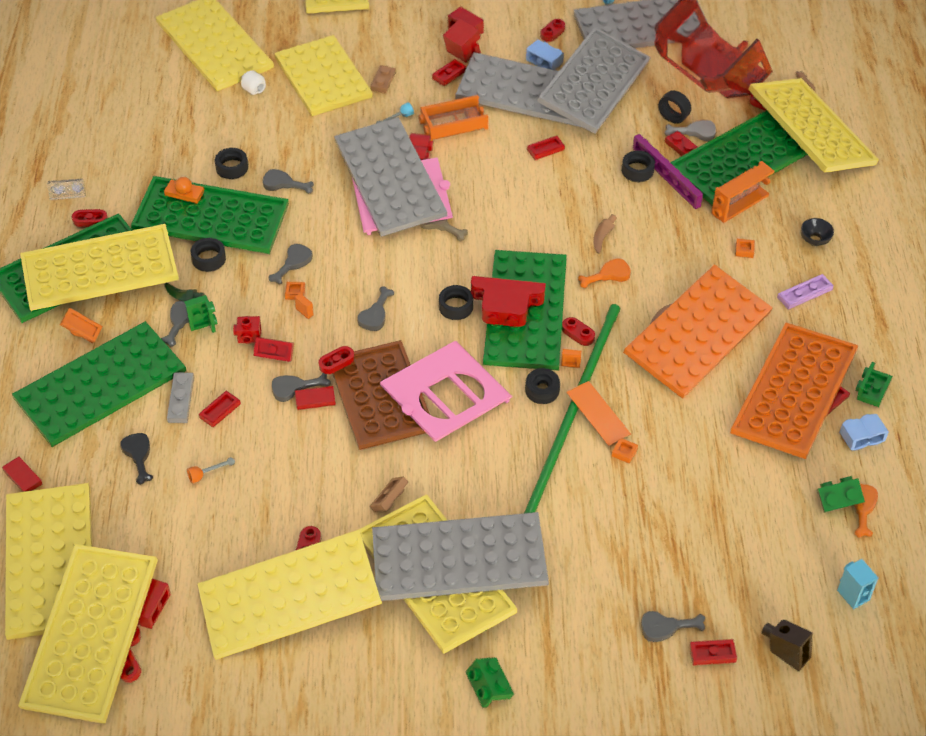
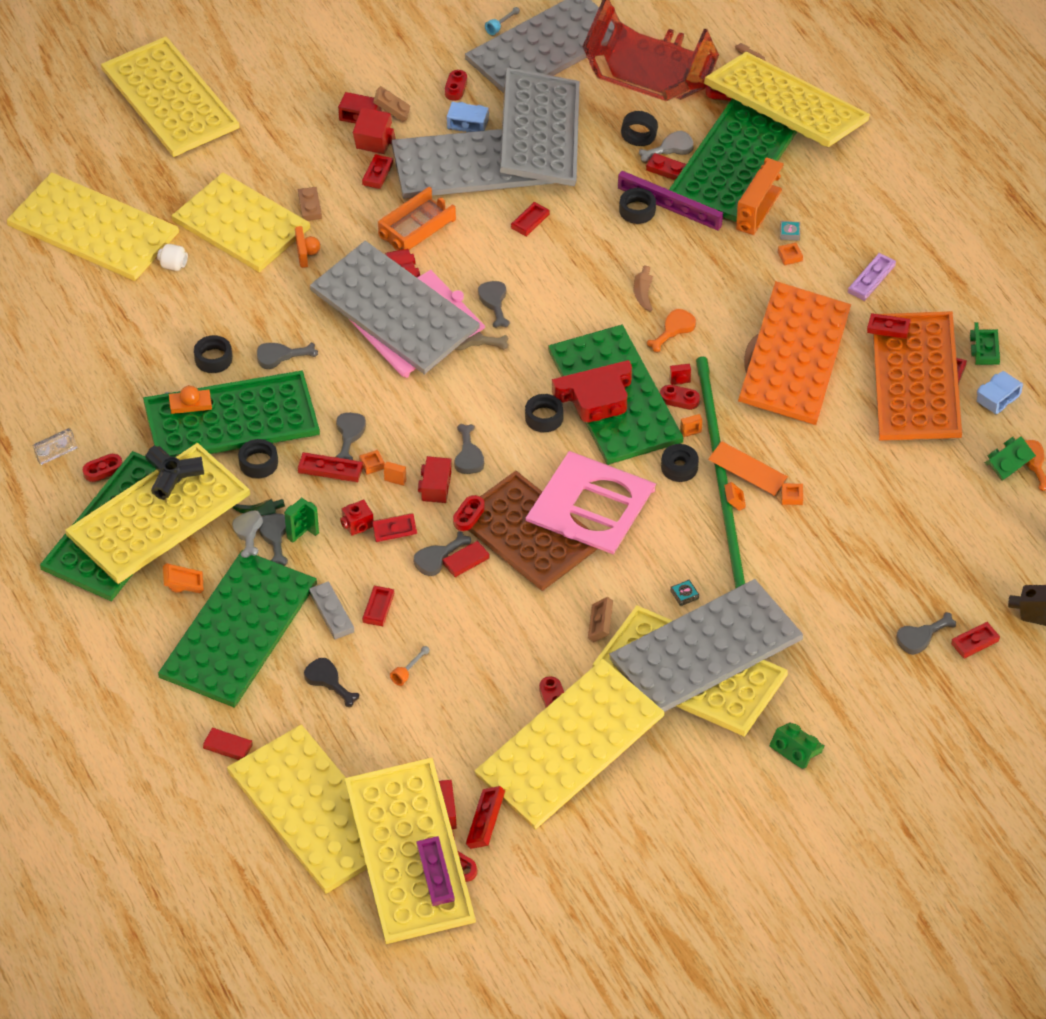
camera: 25 degrees left, 0 degrees up
(92, 661) = (435, 871): none -> magenta plate
(126, 237) = (171, 470): none -> black piece
(157, 306) = (245, 528): none -> light grey piece
(177, 630) = (485, 817): none -> red plate
(258, 282) = (330, 467): none -> red plate
(333, 323) = (436, 479): none -> red brick
(355, 108) = (306, 246): none -> orange tile
(406, 110) = (359, 230): medium azure hinge -> none
(476, 195) = (491, 296): none -> dark grey piece
(477, 500) = (684, 592): none -> clear smoke tile
(491, 26) = (391, 104): none -> medium nougat plate
(571, 432) = (735, 496): none -> orange tile
(588, 312) = (680, 374): none -> red plate
(755, 229) = (789, 230): none -> light grey tile
(792, 337) = (888, 326): none -> red plate
(819, 228) = (852, 207): black piece -> none

